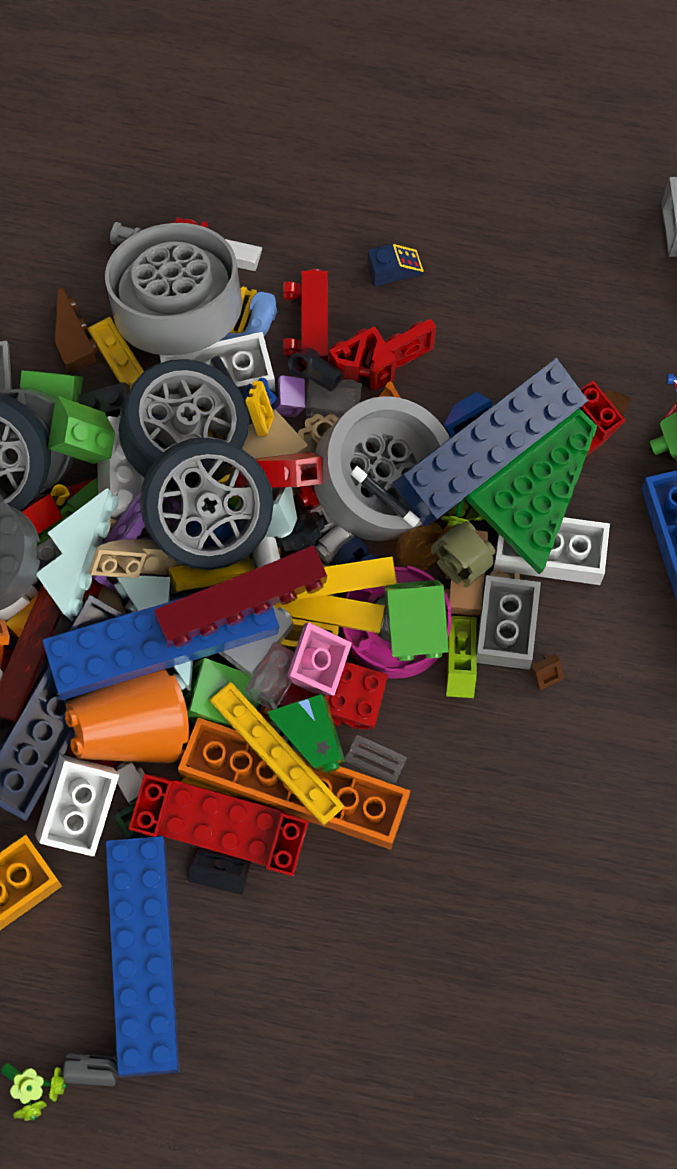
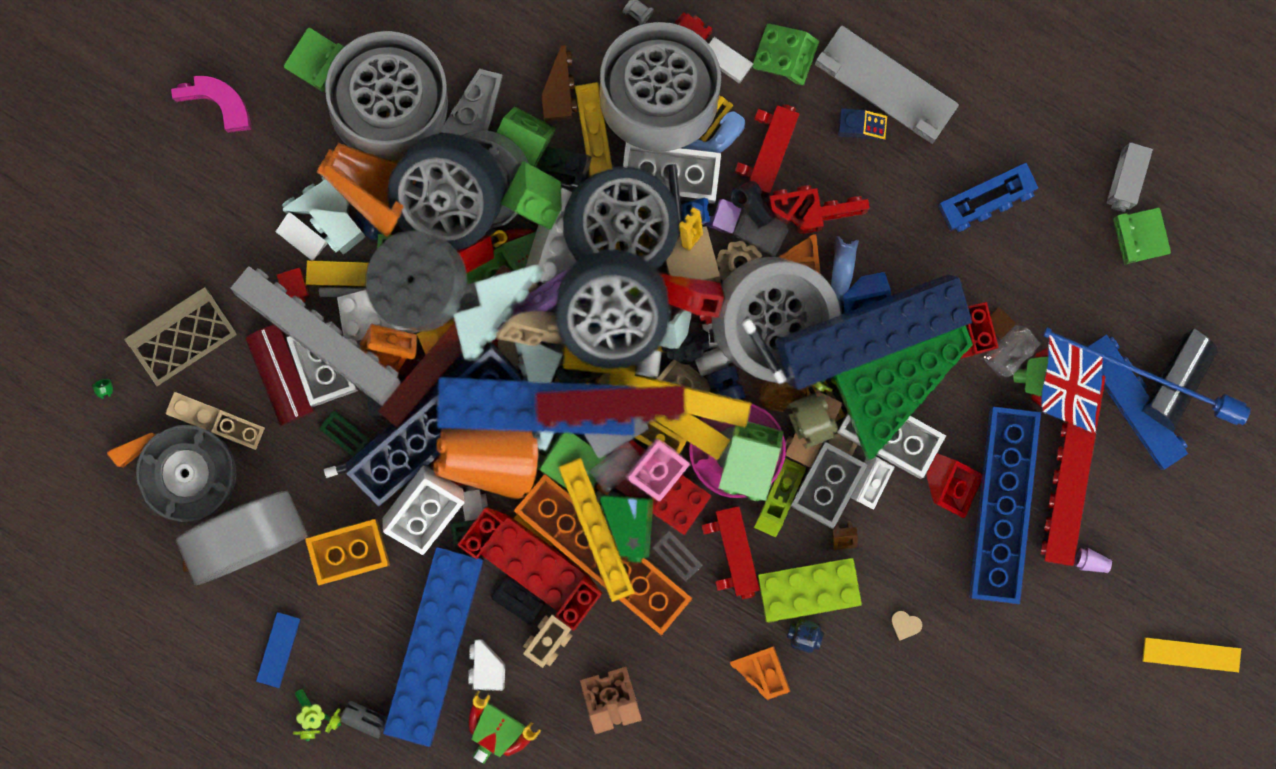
camera: 20 degrees right, 15 degrees up
(213, 955) = (488, 668): none -> white slope
(247, 1024) = (496, 730): none -> torso
(270, 892) = (543, 646): none -> tan brick
(291, 222) = (786, 52): none -> bright green bracket
(364, 938) = (610, 700): none -> nougat brick
(403, 220) = (886, 84): none -> light grey bracket
(431, 395) = (843, 268): none -> medium blue piece
(438, 728) = (737, 553): none -> red brick
(519, 847) = (763, 672): none -> orange wing
(522, 309) = (1023, 181): none -> blue brick
(532, 739) = (809, 590): none -> lime brick
(548, 790) = (805, 635): none -> dark blue head
(552, 606) = (872, 482): none -> white slope
(637, 573) = (952, 484): none -> red slope
(641, 419) = (1012, 351): none -> clear brick
(649, 740) = (905, 625): none -> tan tile

